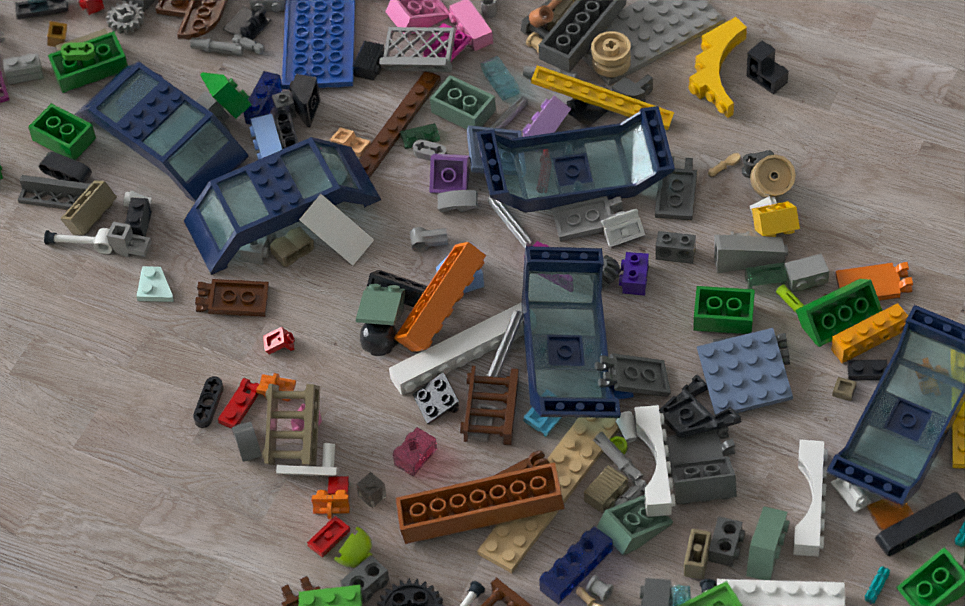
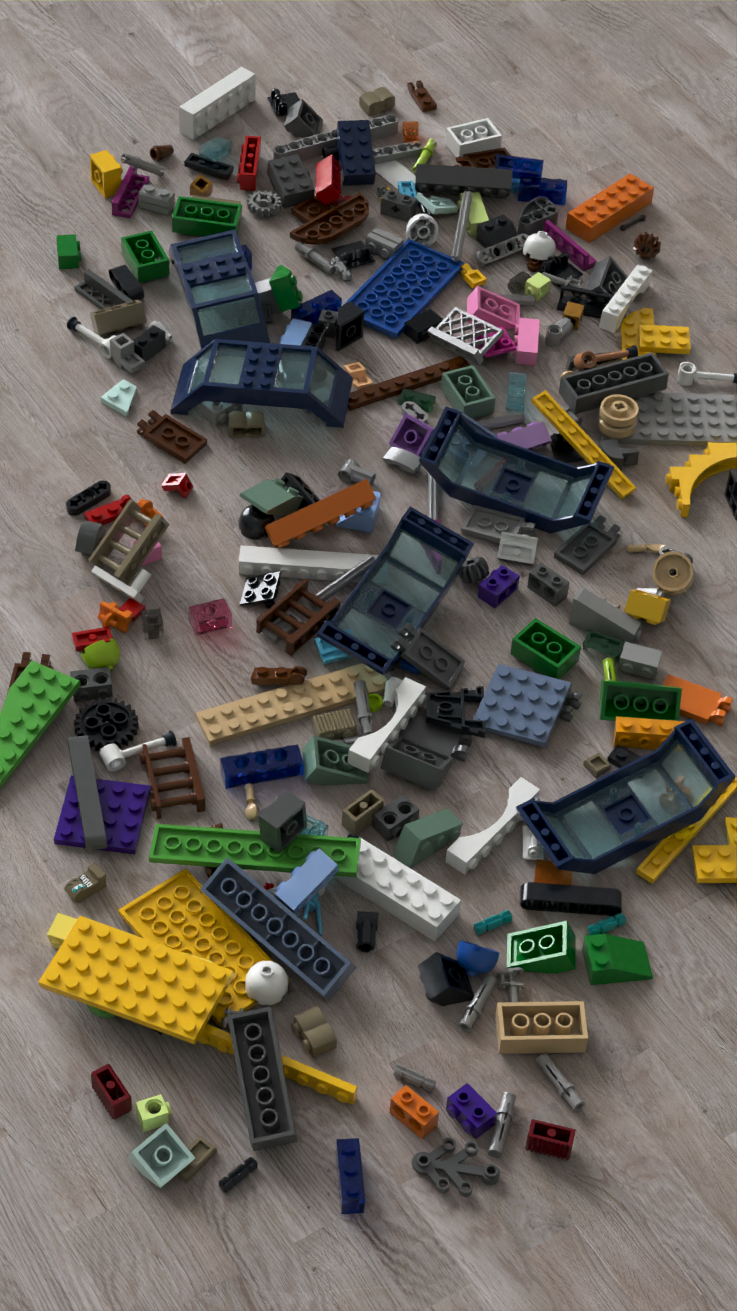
camera: 25 degrees right, 5 degrees down
(78, 51) = (201, 204): bright green beam -> none
(336, 229) = (285, 426): white sticker -> none
(479, 503) = (223, 677): dark orange brick -> none
(599, 588) = (265, 793): light grey bush -> none

